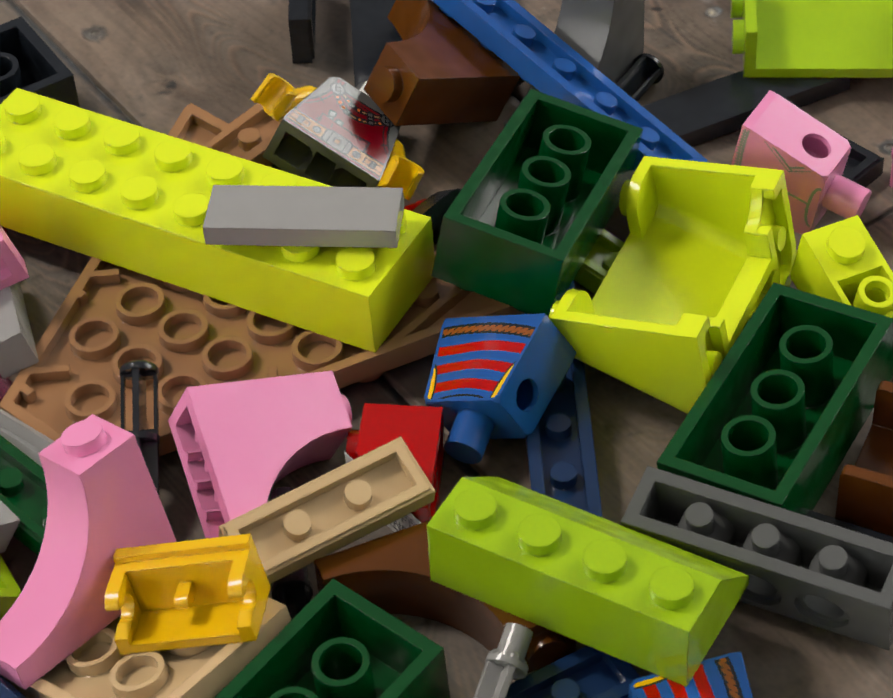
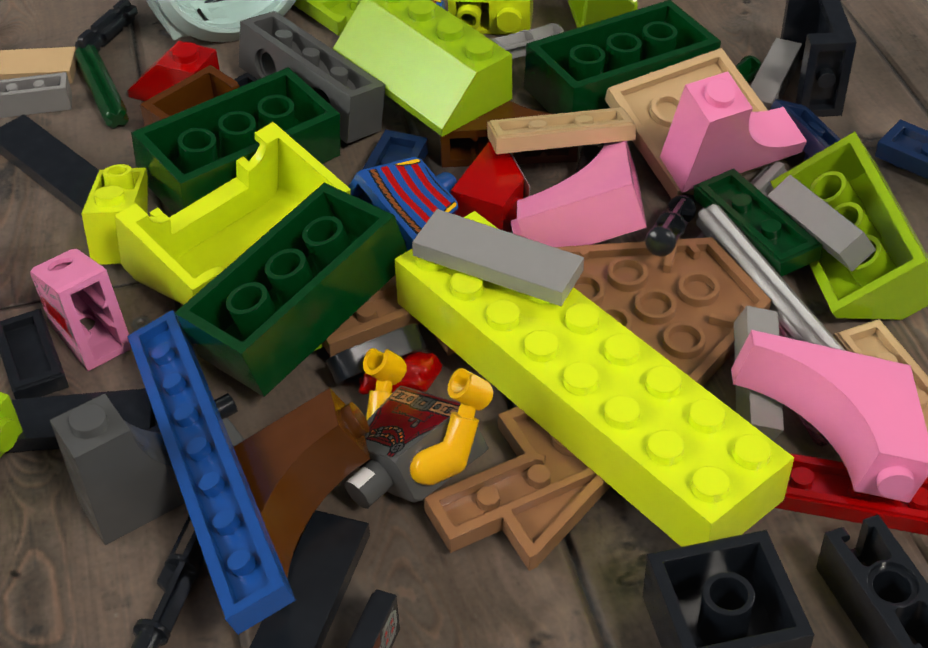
camera: 160 degrees left, 0 degrees up
(187, 594) = (647, 96): yellow hinge -> none

